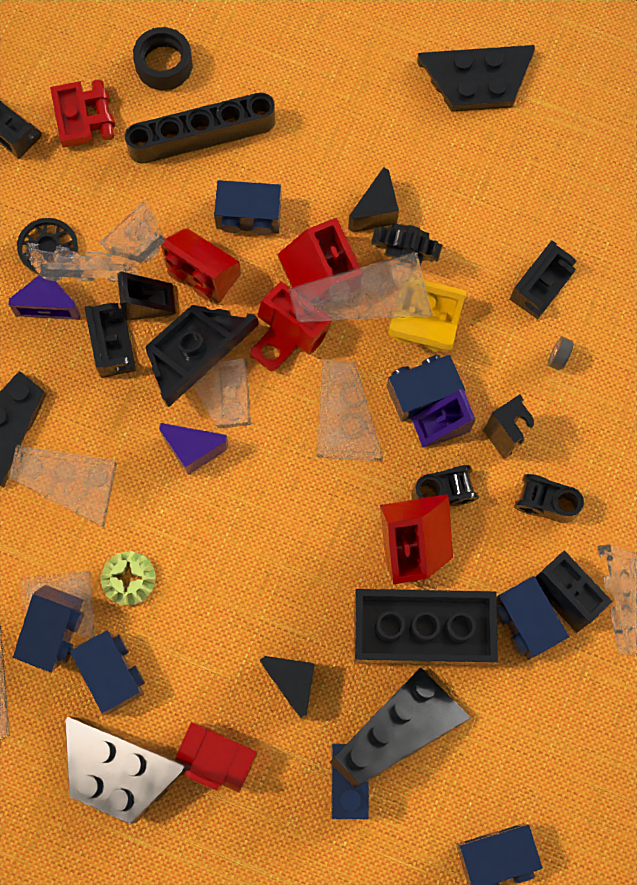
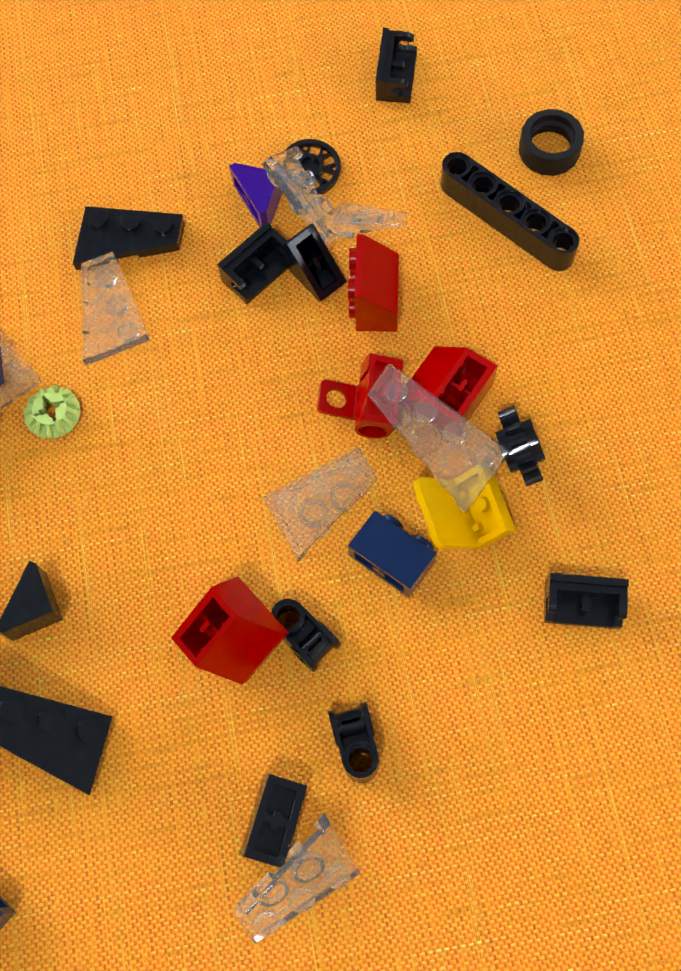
camera: 65 degrees right, 5 degrees down
(72, 114) = (443, 108): red plate -> none
(193, 446) = (198, 389): dark purple slope -> none
(194, 346) = (291, 330): black wing -> none
(226, 393) = (270, 382): clear wing -> none
(248, 207) = (460, 294): dark blue brick -> none
(377, 206) = (545, 399): black slope -> none
(425, 627) = (146, 695): black brick -> none
(444, 419) = (371, 591): dark purple slope -> none
(502, 427) = (400, 647): black hinge -> none
(530, 618) = (219, 794): dark blue brick -> none
(560, 353) = (518, 663): dark grey tile -> none

